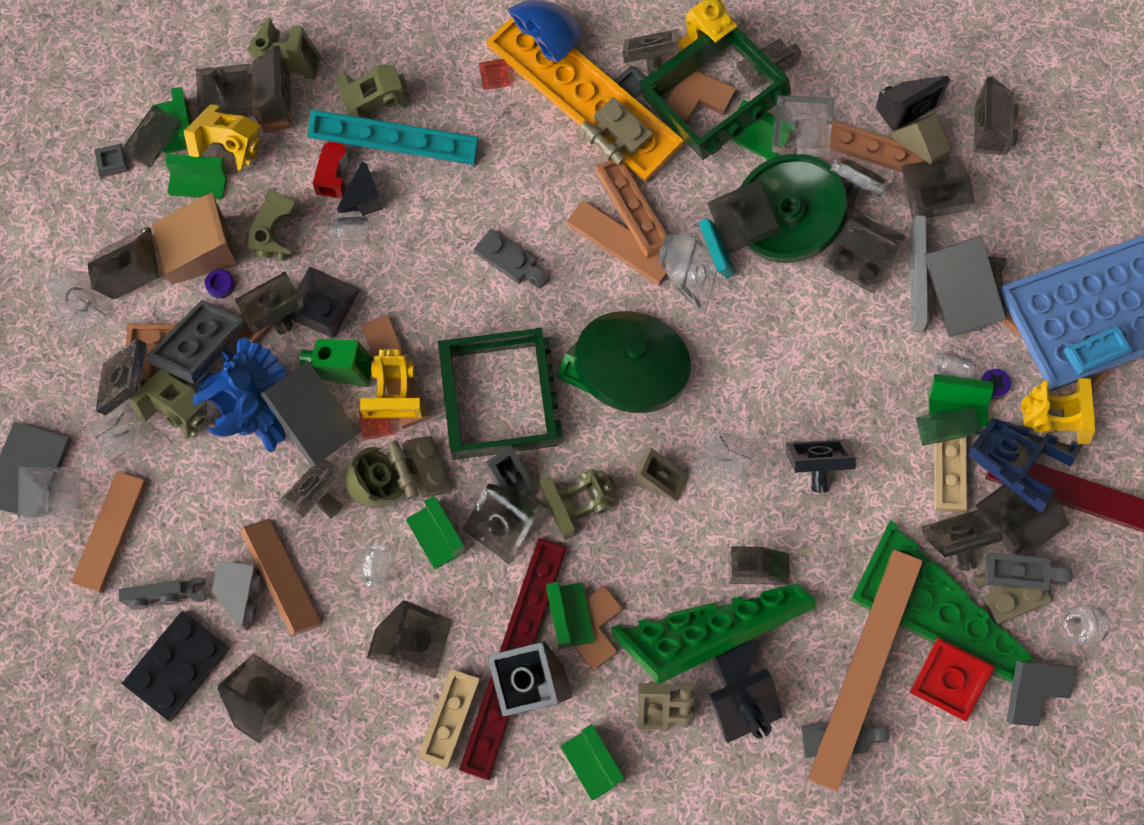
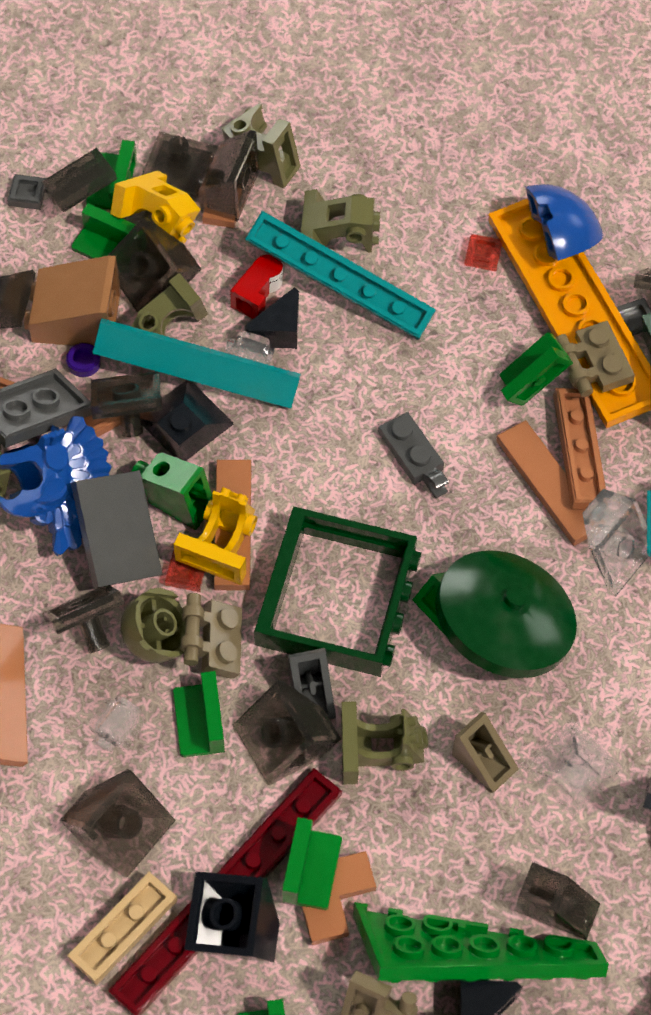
camera: 20 degrees right, 10 degrees down
(239, 185) = (149, 260): none -> clear smoke slope
(311, 254) = (196, 363): none -> teal tile
(574, 157) = (534, 369): none -> green panel

